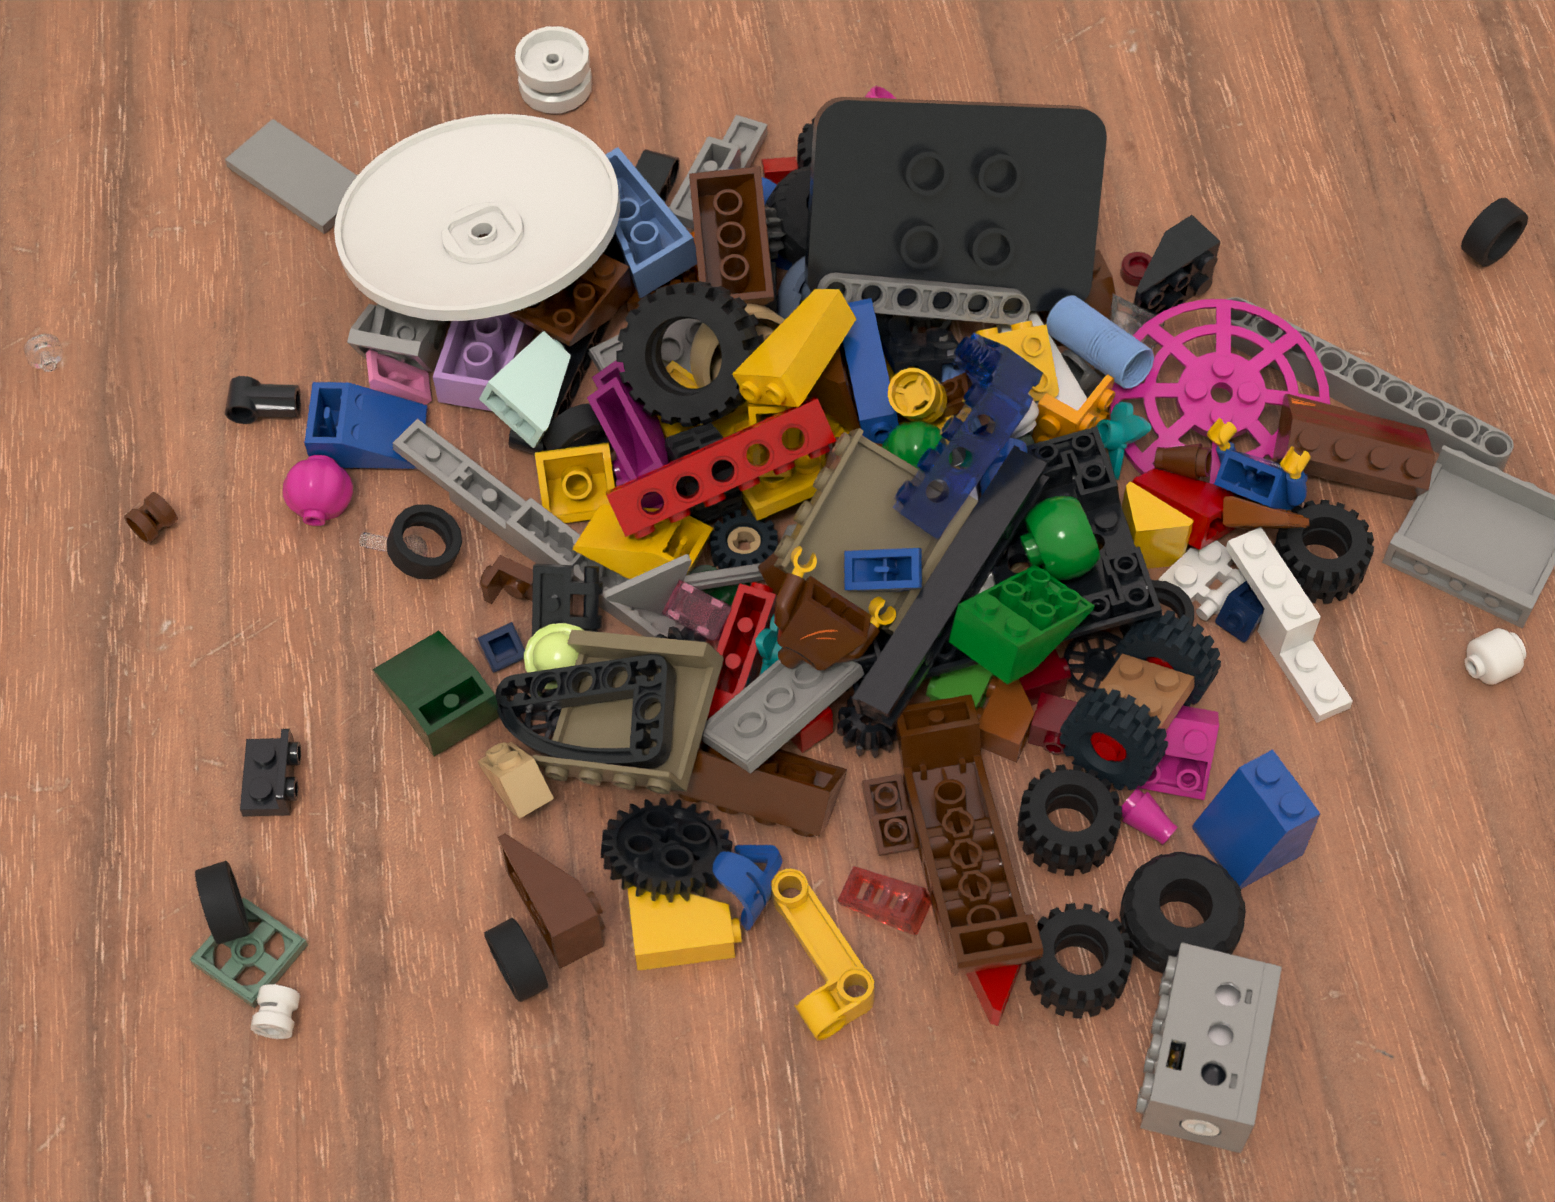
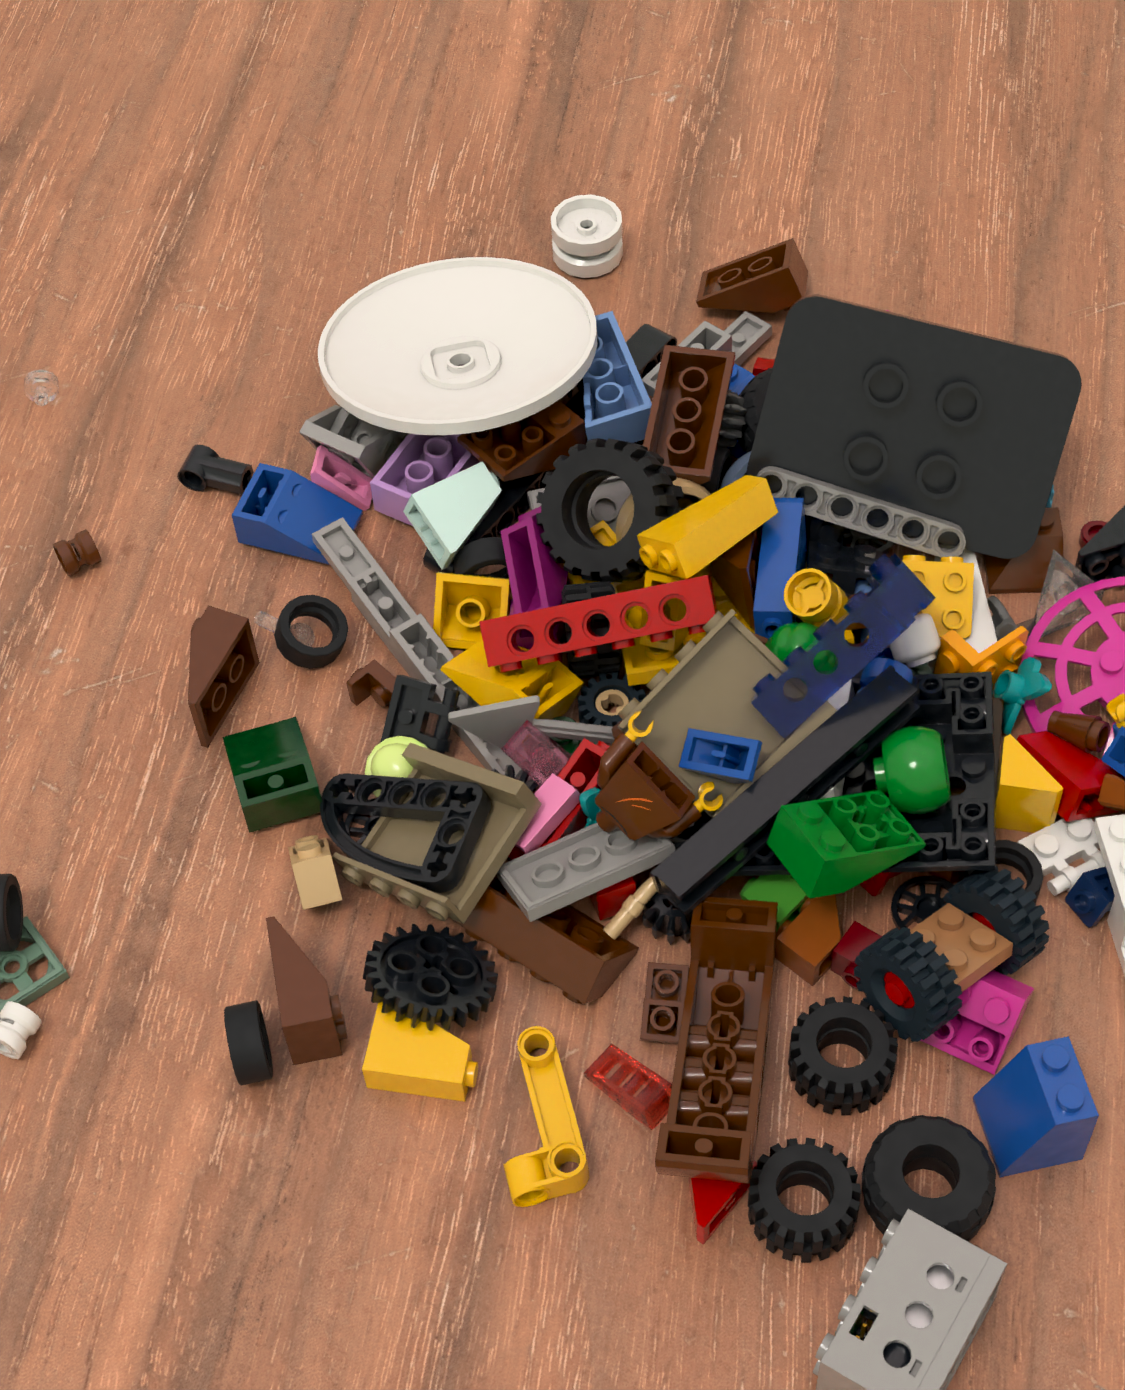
camera: 20 degrees right, 5 degrees down
(269, 776) = (93, 811): black bracket -> none
(293, 174) = (315, 275): light grey tile -> none
(317, 489) = (233, 562): dark pink plant -> none
(349, 595) = (219, 668): none -> reddish brown slope
(501, 647) = (349, 746): dark blue slope -> none
(732, 873) = (478, 1014): blue helmet -> none
(735, 649) = (557, 801): none -> bright pink slope
(737, 83) = (757, 282): none -> reddish brown slope
(834, 732) = (631, 908): none -> tan piece
(1047, 677) = (866, 905): dark red brick -> none
(1100, 341) = (1026, 594): light blue piece -> none
(1147, 816) = (926, 1074): dark pink cone -> none

